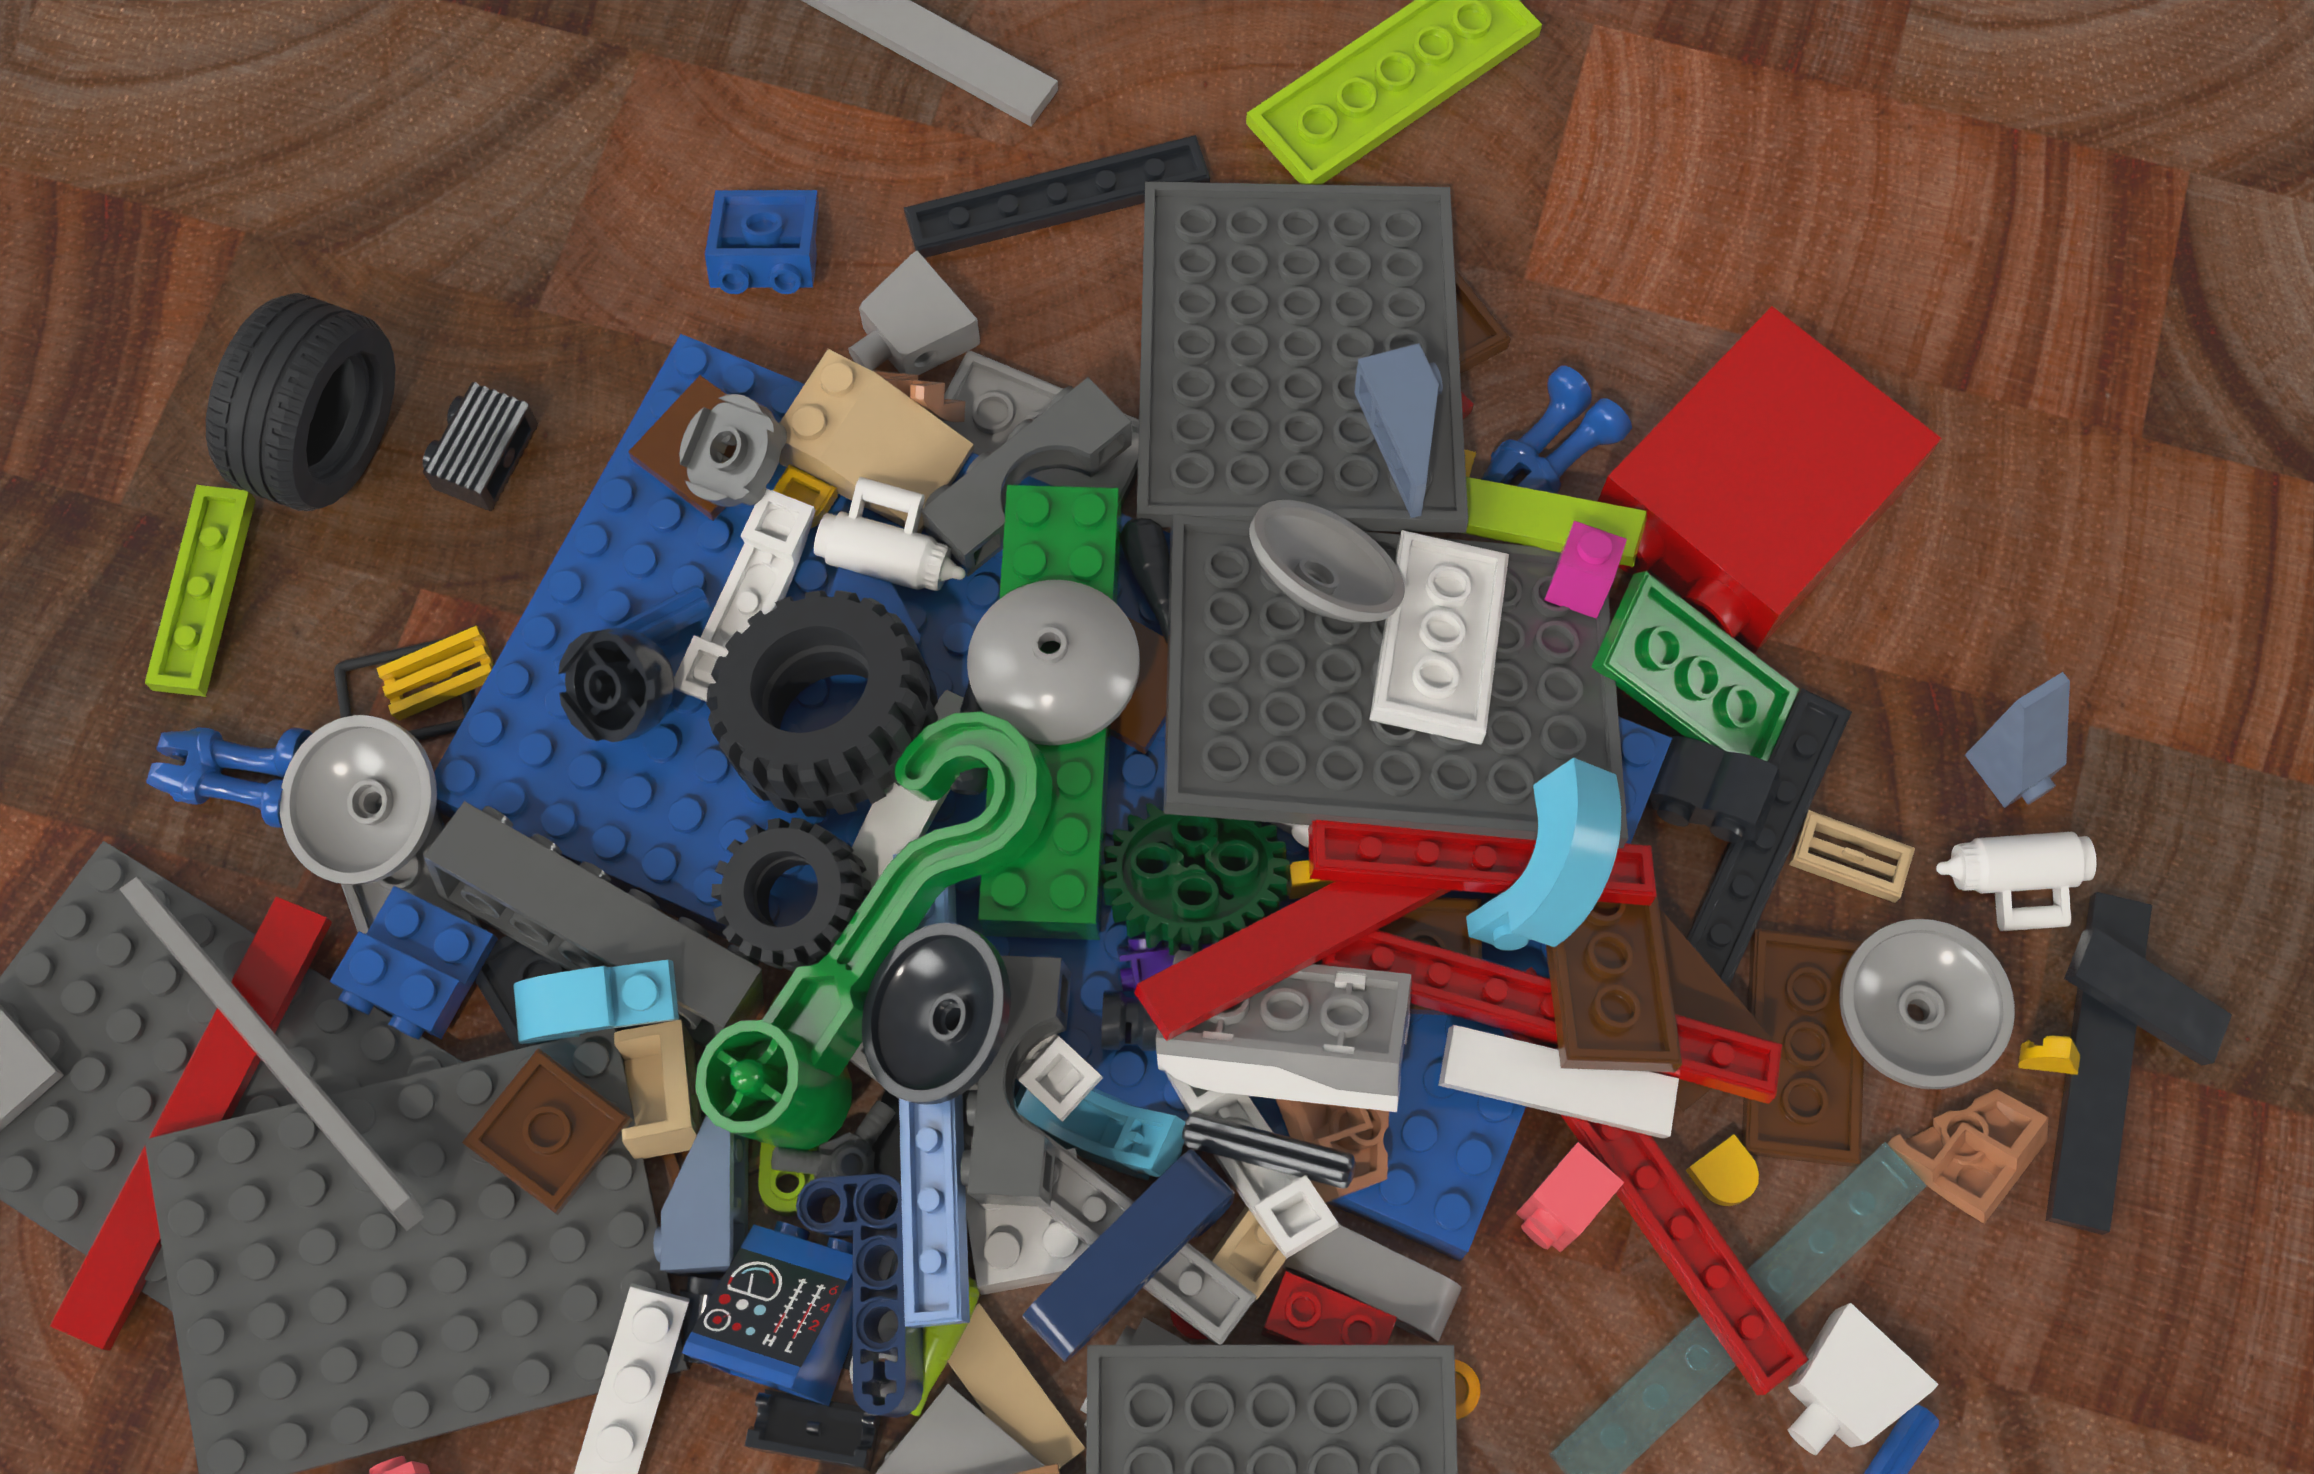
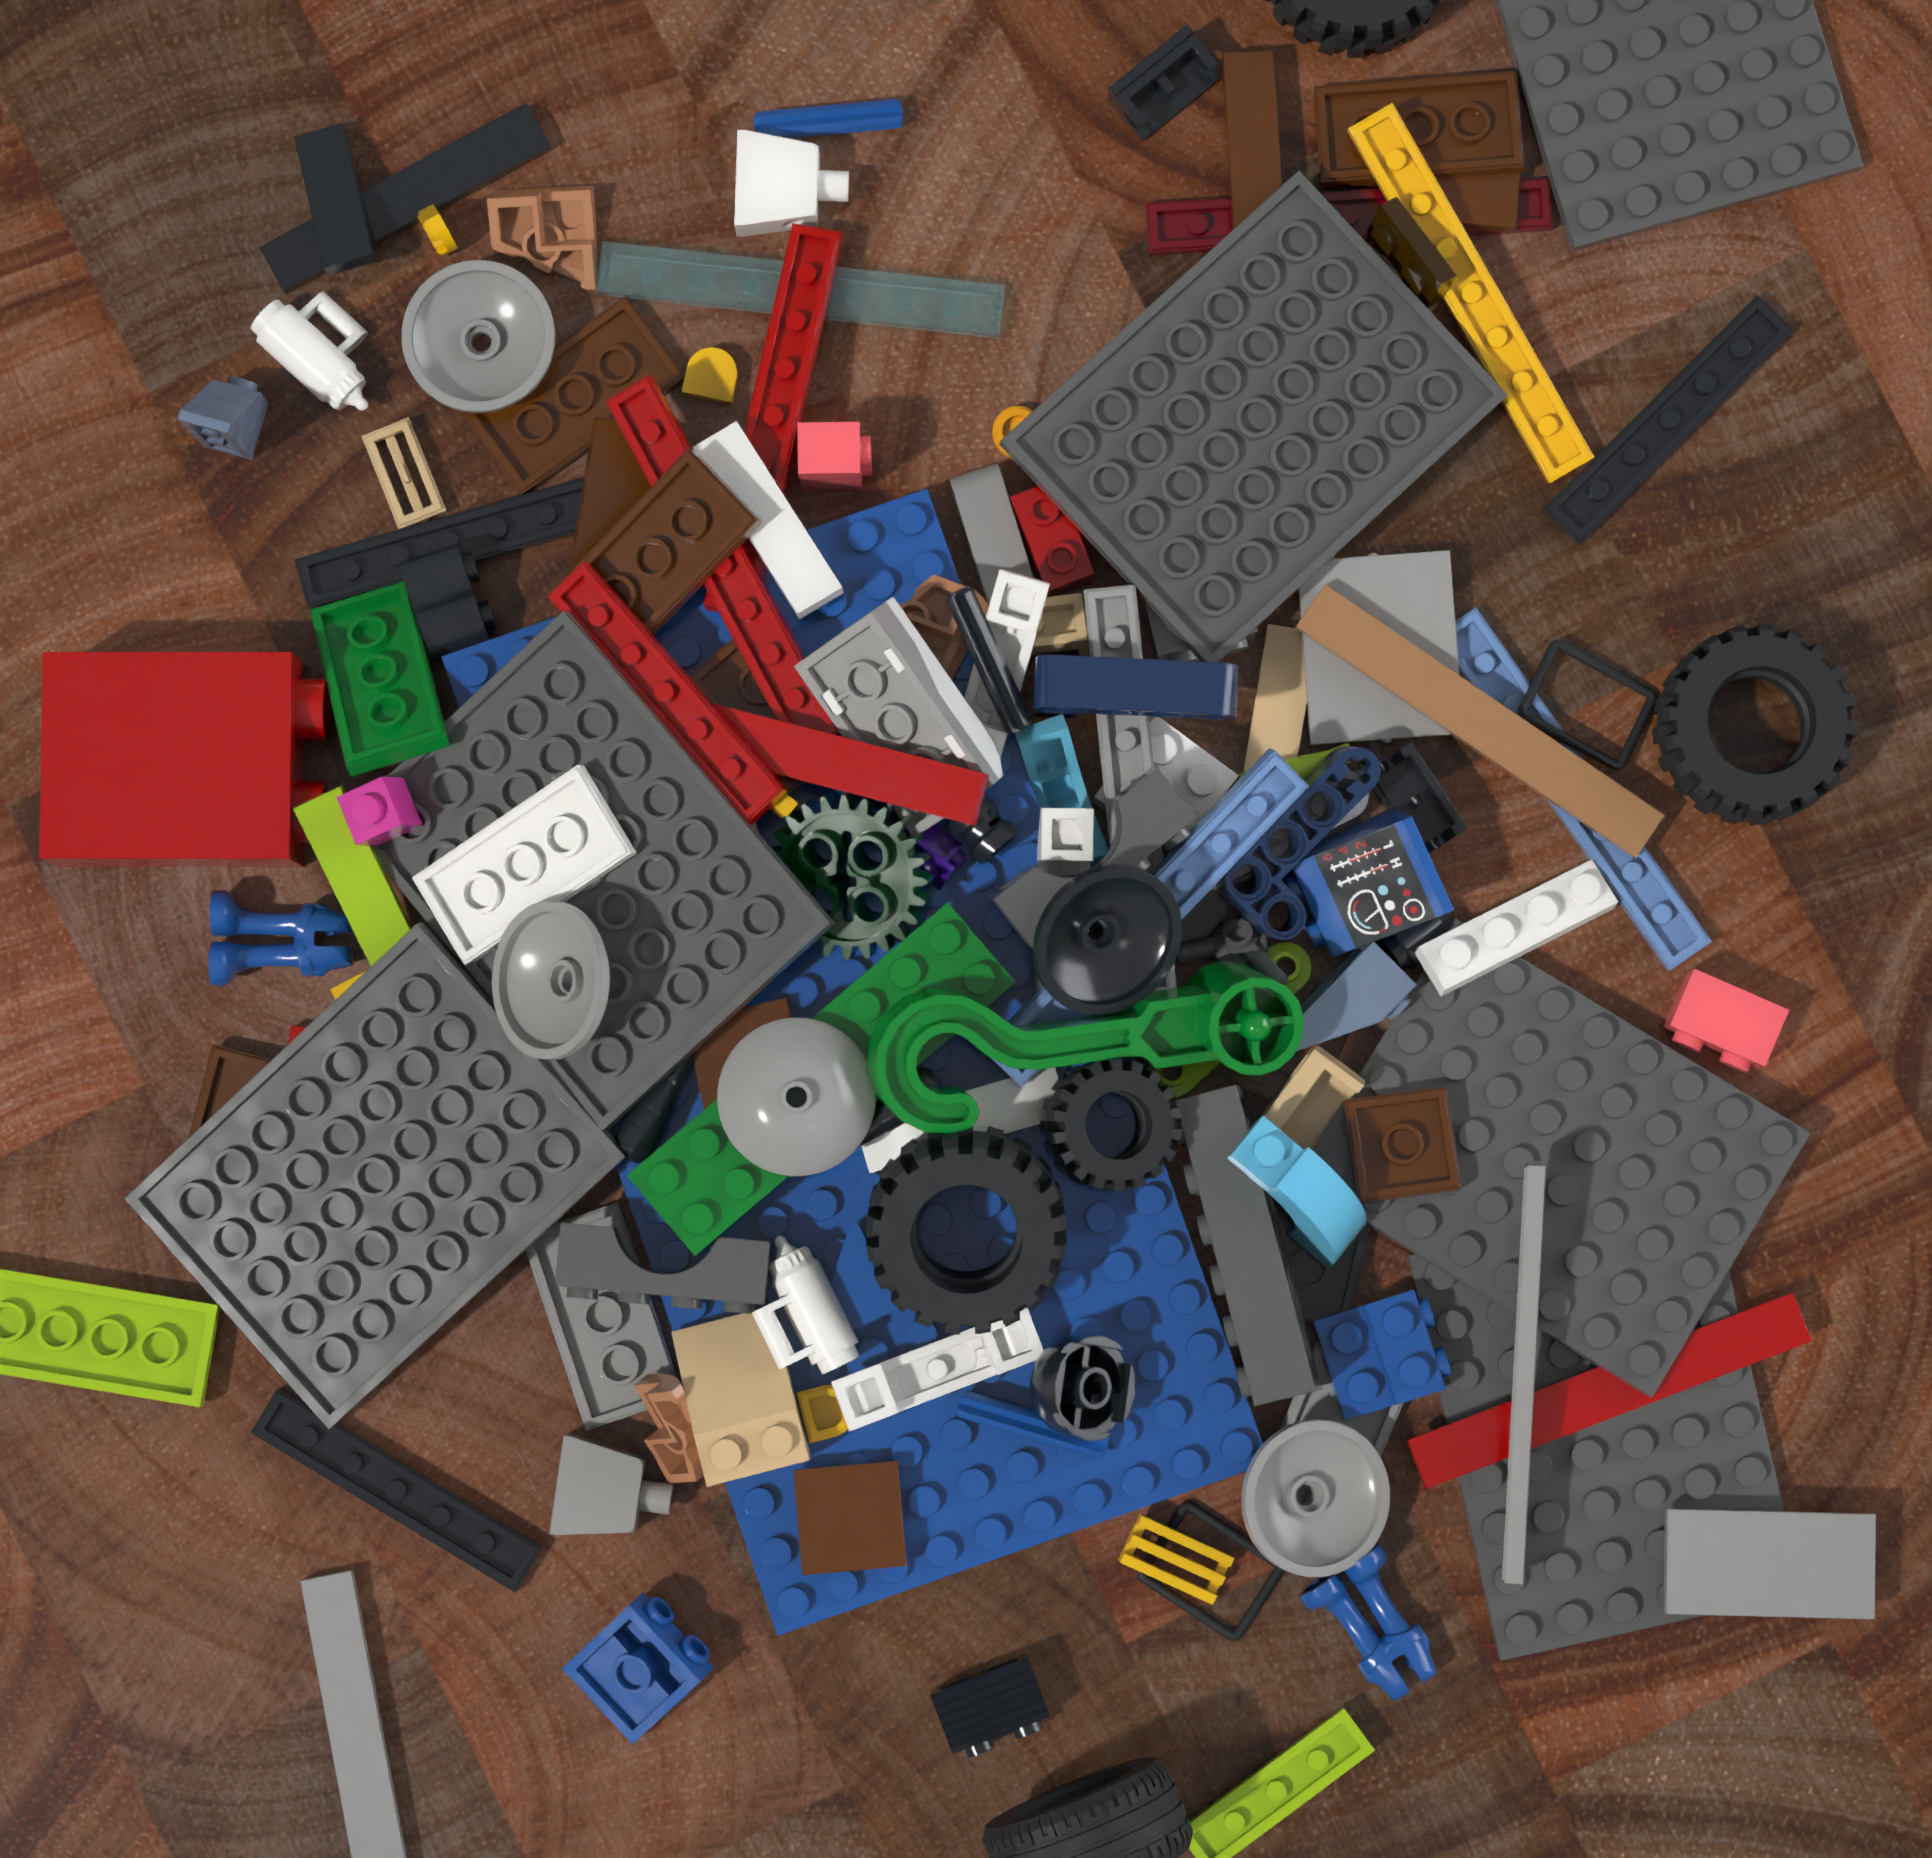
camera: 130 degrees left, 15 degrees up
(756, 456) = (823, 1460): plate -> none
(1399, 404) = (371, 1044): sand blue slope -> none
(1569, 864) = (621, 627): medium azure arch -> none

